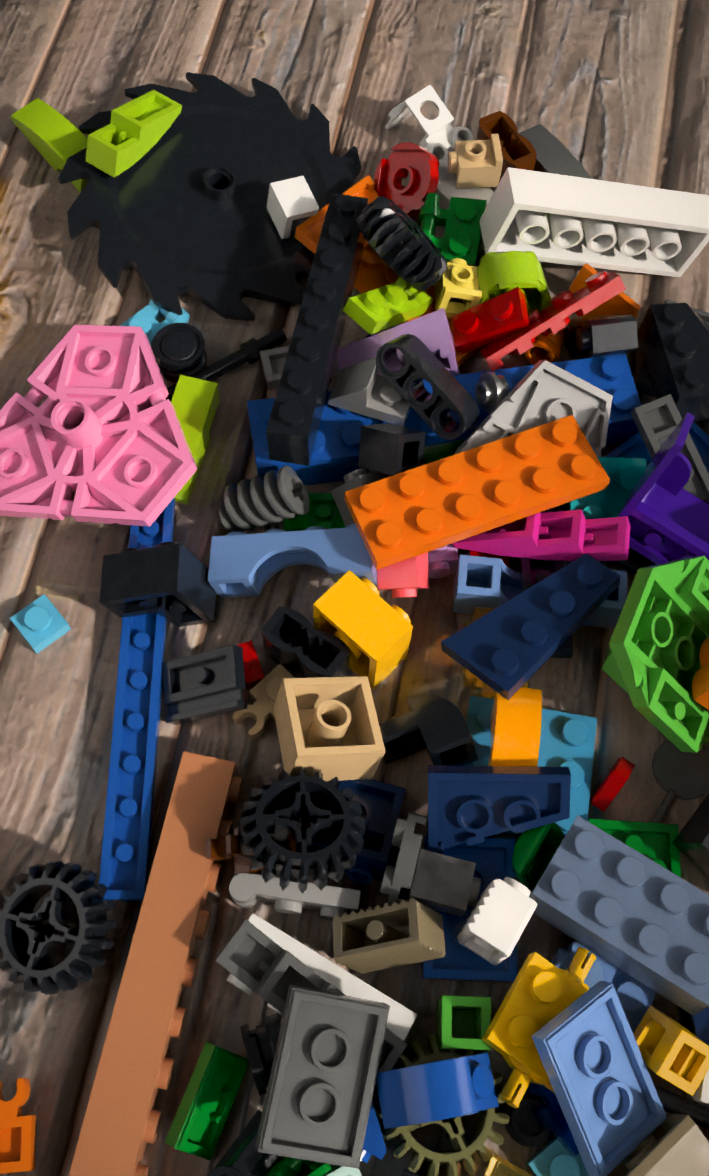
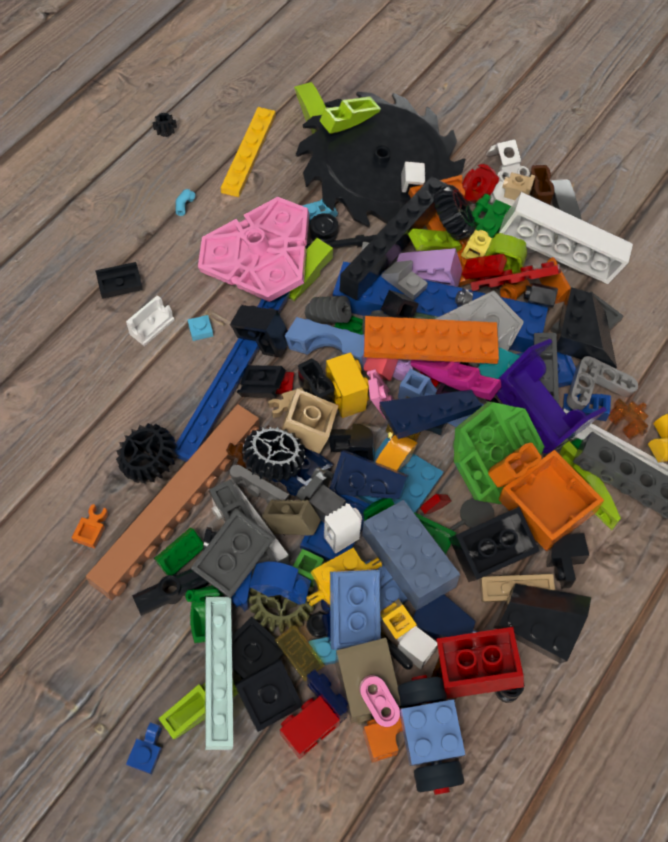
camera: 25 degrees right, 5 degrees down
(408, 381) = (430, 283): black beam -> none
(428, 622) = (378, 389): none -> bright pink plate

